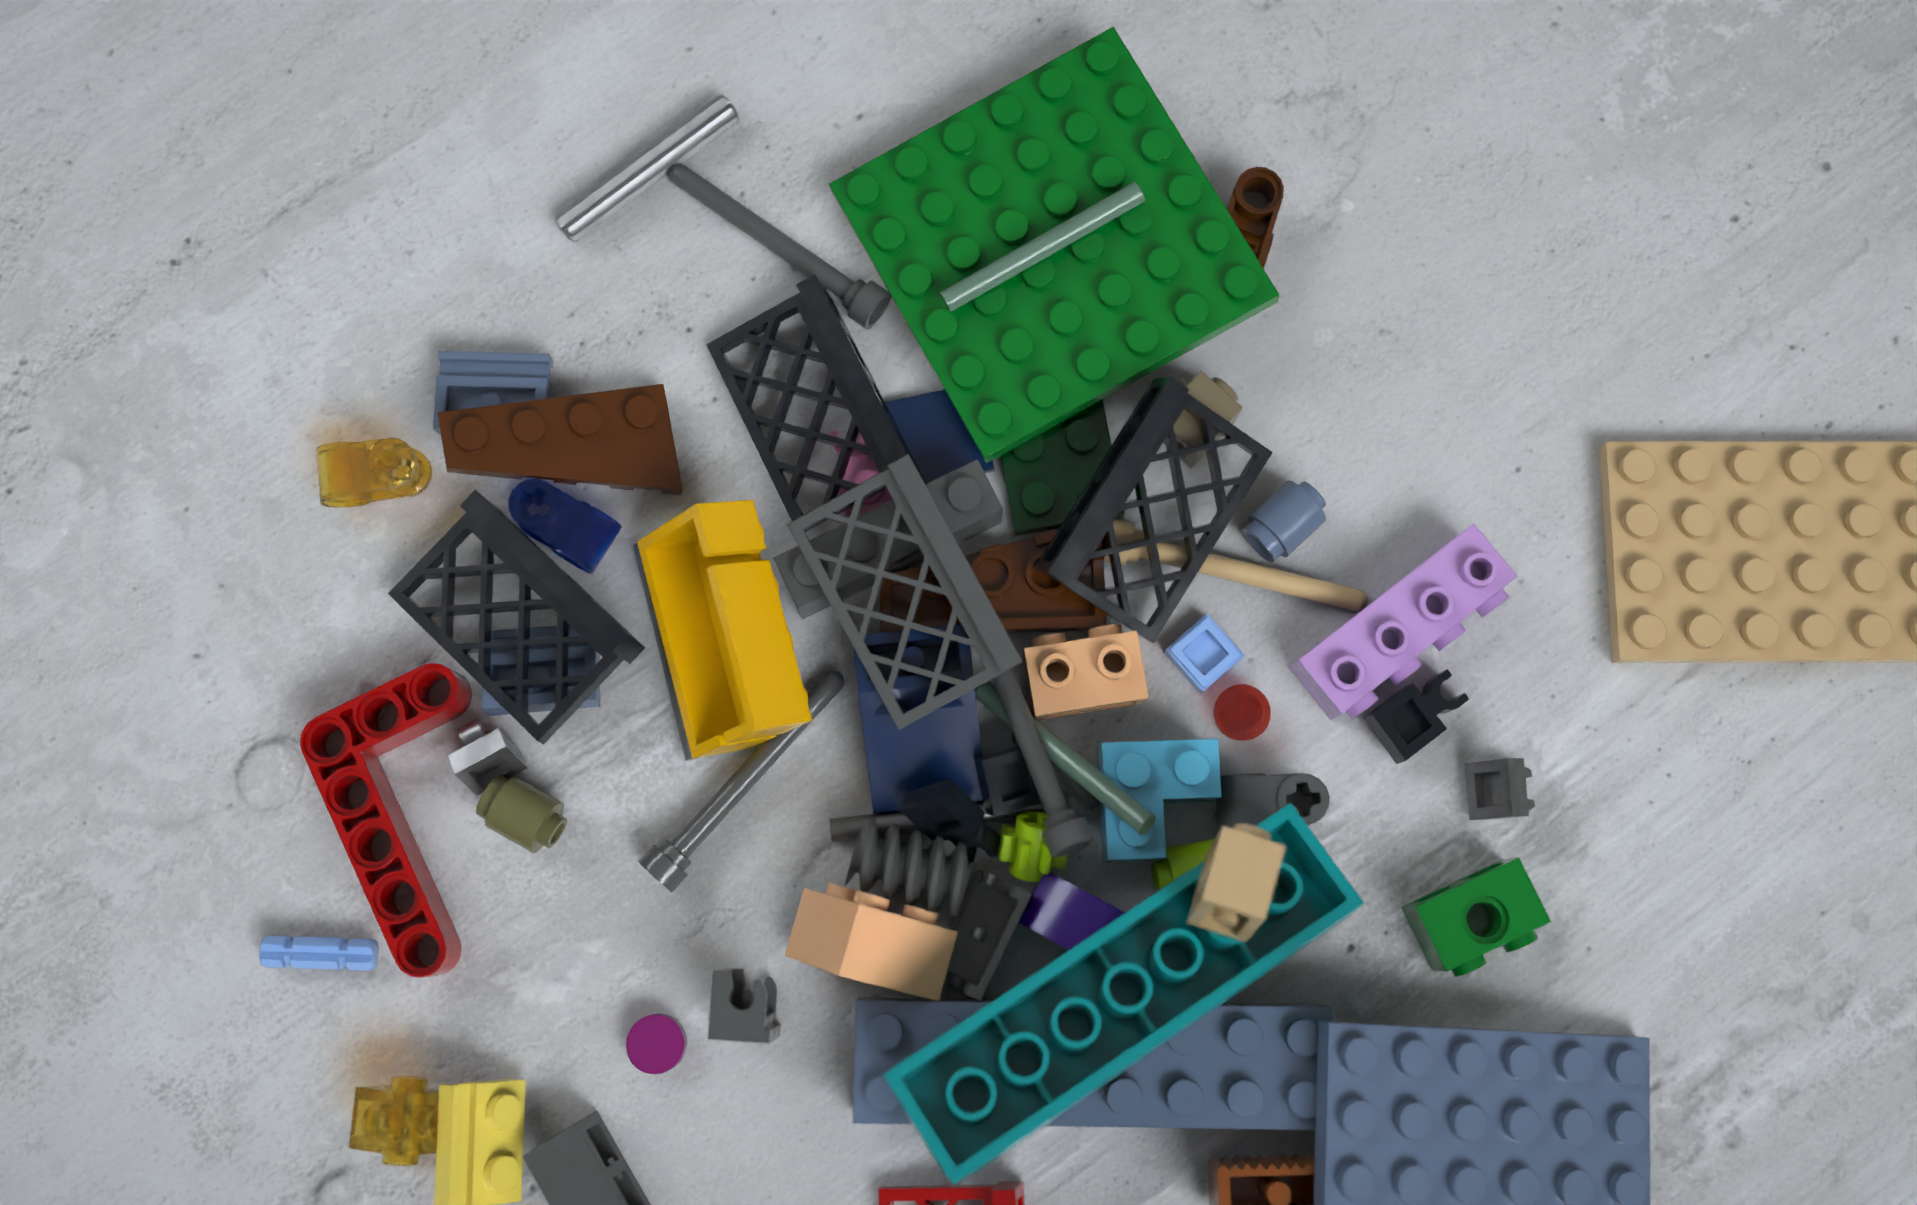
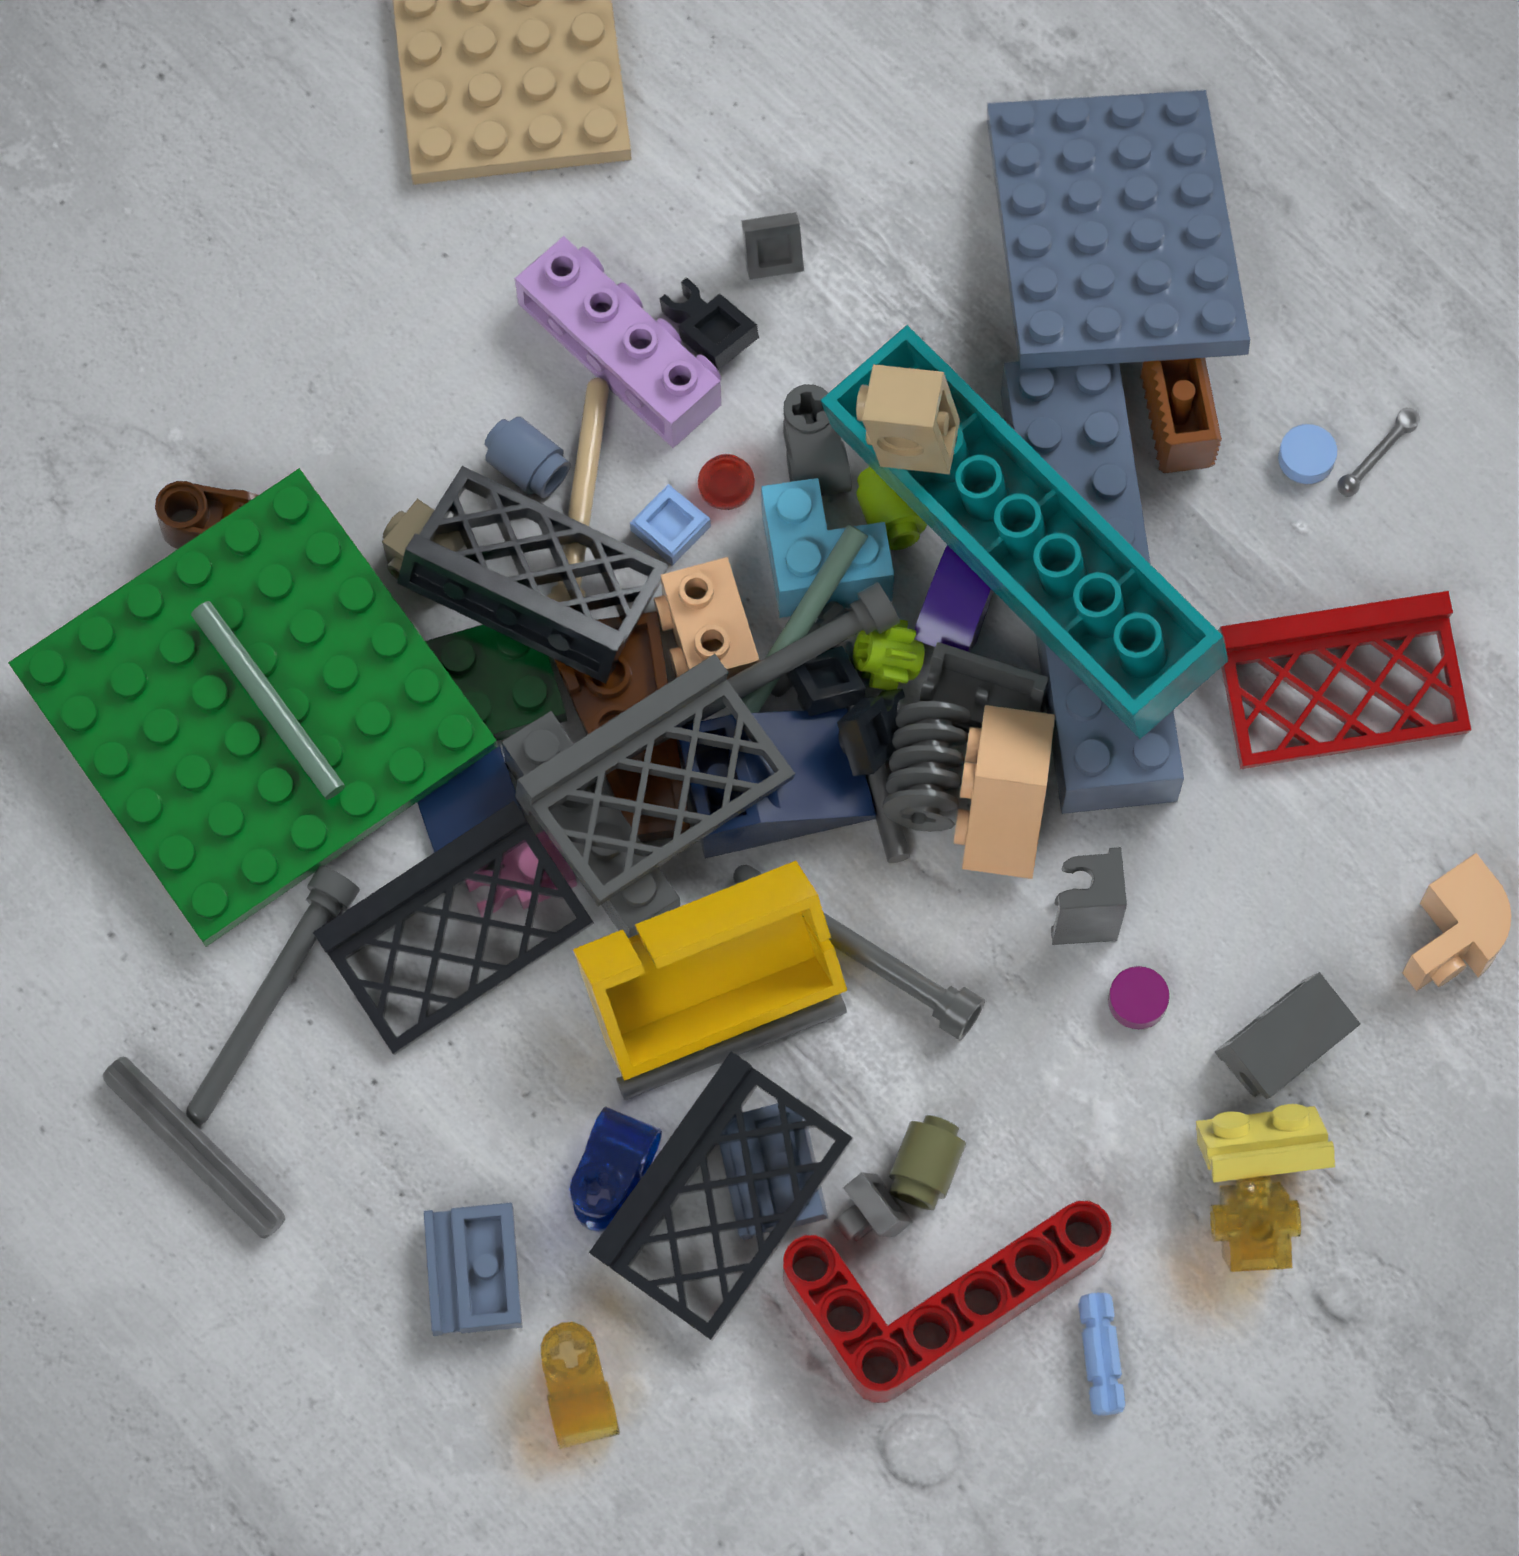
camera: 95 degrees left, 10 degrees down
(583, 438) = (518, 1163): reddish brown wing -> none
(1511, 908) = (899, 284): green brick -> none

